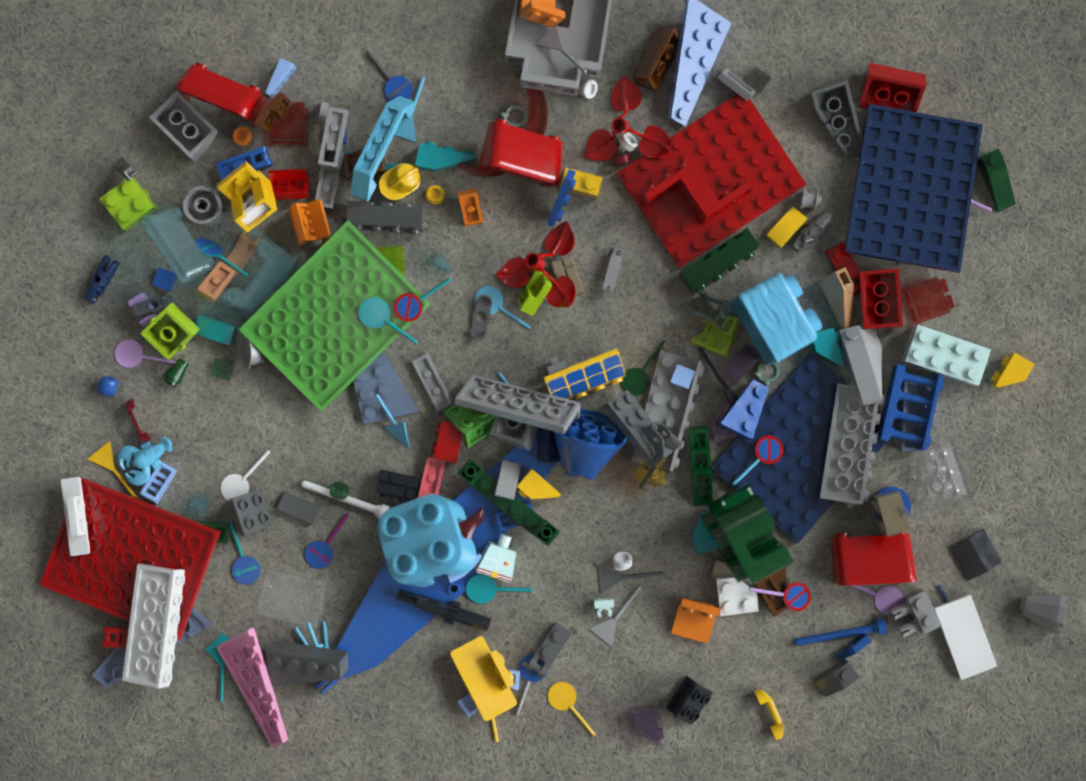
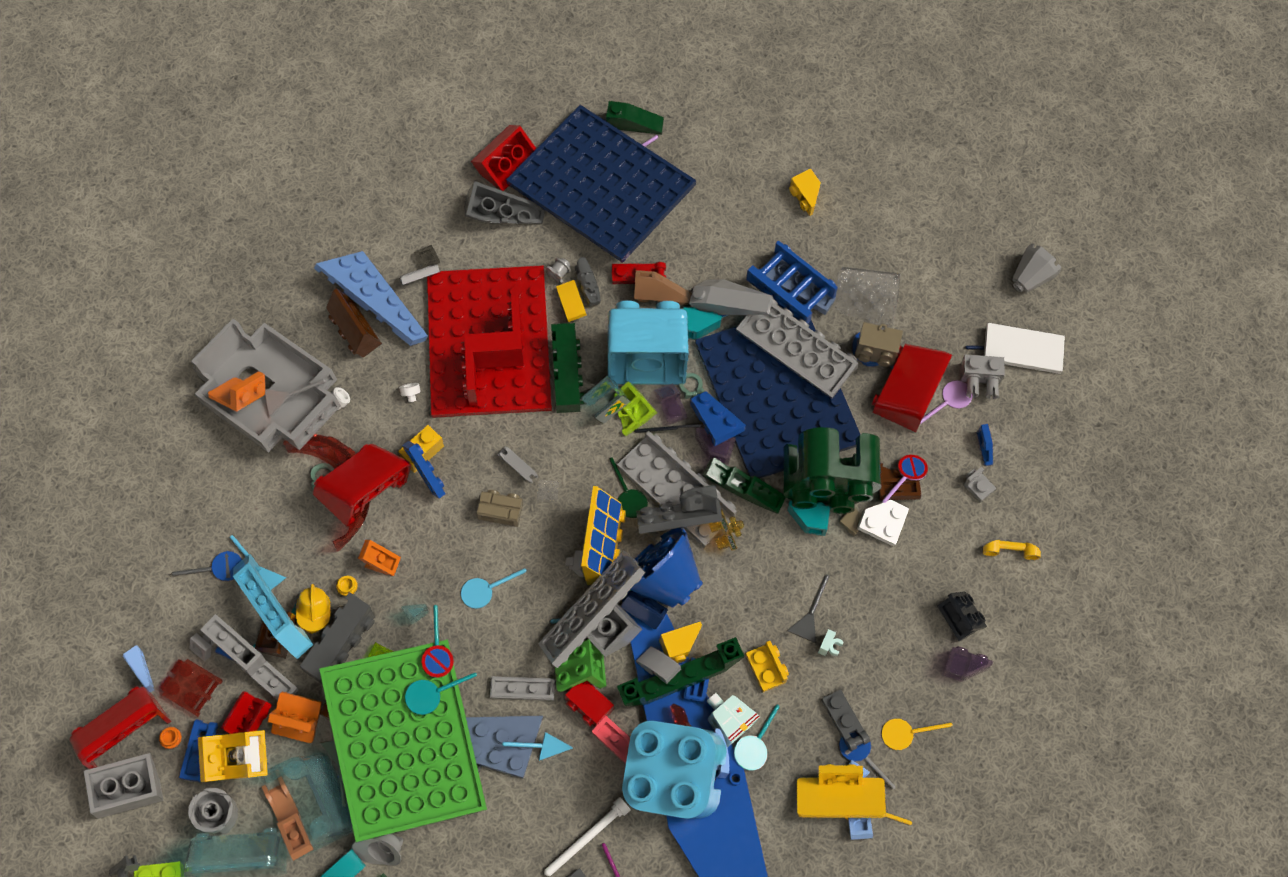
camera: 65 degrees left, 20 degrees down
(211, 248) = (264, 825): piece -> none
(274, 108) = (168, 686): reddish brown slope -> none
(339, 490) = (575, 837): clear green tile -> none
(397, 485) = (603, 776): black brick -> none
(438, 159) = (315, 563): teal slope -> none
(451, 612) = (757, 793): black piece -> none
(478, 328) = (478, 598): dark grey piece -> none
(515, 271) = (461, 496): red plant -> none
(534, 293) = (493, 543): lime slope -> none
(557, 565) = (767, 666): none -> yellow bracket
(601, 144) = (398, 414): red plant -> none
(607, 628) = (853, 656): light grey piece -> none
(621, 159) = (422, 404): dark red tile -> none
(622, 561) = (796, 604): white tile -> none
(682, 376) = (652, 455): light blue tile -> none
(694, 619) = (886, 568): orange bracket -> none
(768, 450) = (764, 419): piece -> none
(813, 659) = (979, 484): none -> light grey bracket
(837, 678) = (1007, 473): dark grey slope -> none
(877, 627) = (977, 414): blue piece -> none
(881, 299) = (682, 255): red slope -> none
(928, 299) = (705, 223): clear red plate -> none
(946, 355) = (757, 235): light aqua brick -> none
(975, 554) = (953, 303): black slope -> none

